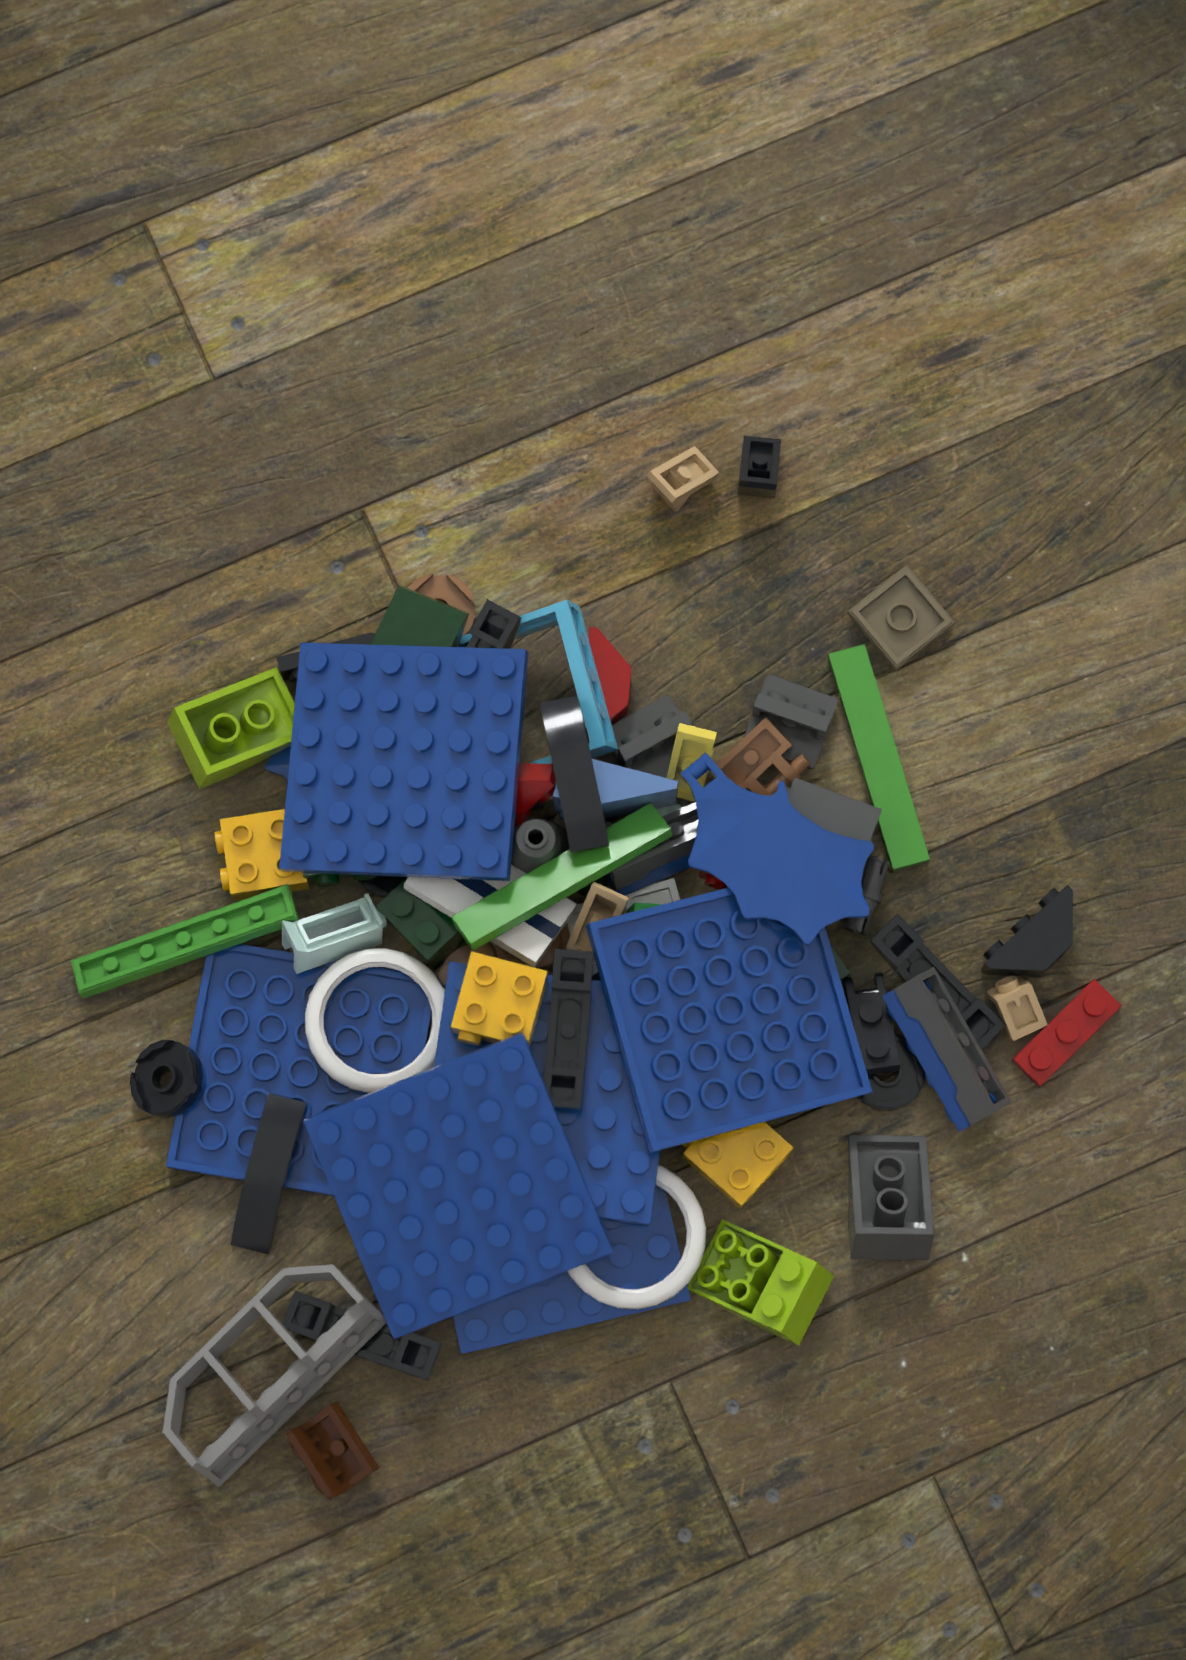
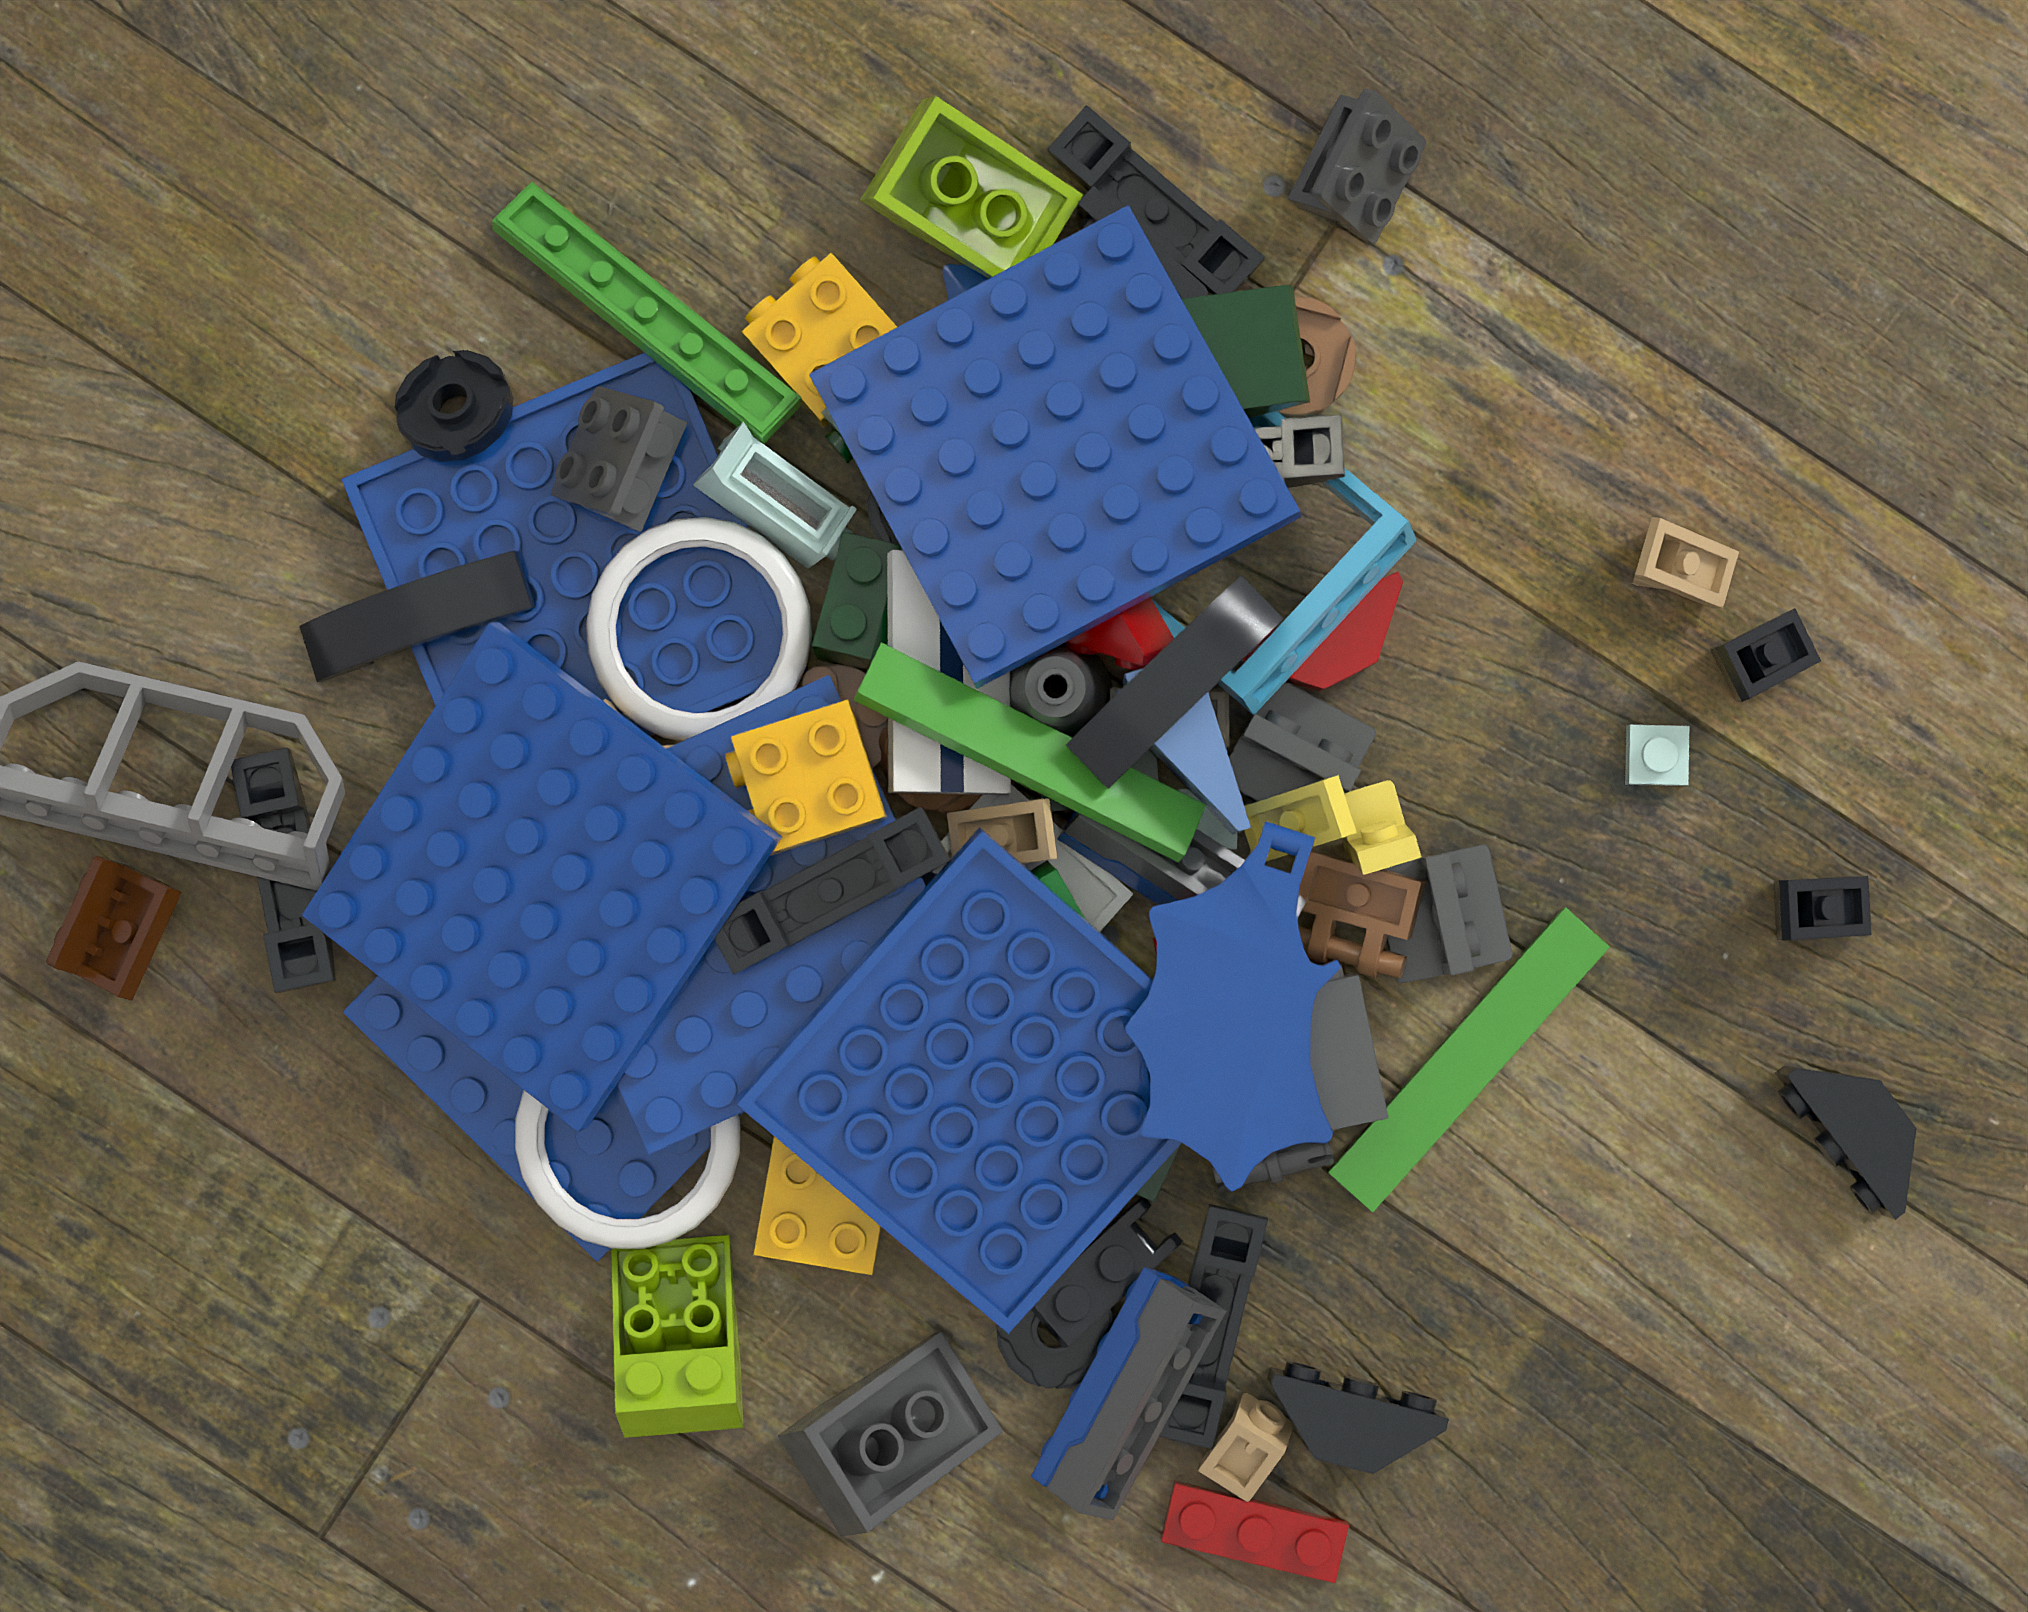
camera: 55 degrees right, 10 degrees up
(254, 1003) = (618, 456): none -> dark grey bracket
(260, 646) = (1205, 247): none -> black slope
(356, 514) = (1359, 165): none -> dark grey bracket
(726, 721) = (1381, 830): none -> light yellow slope
(776, 556) = (1657, 755): none -> light aqua plate
(901, 618) = (1676, 972): dark tan plate -> none
(913, 520) = (1822, 908): none -> black slope
(1046, 574) = (1859, 1128): none -> black slope

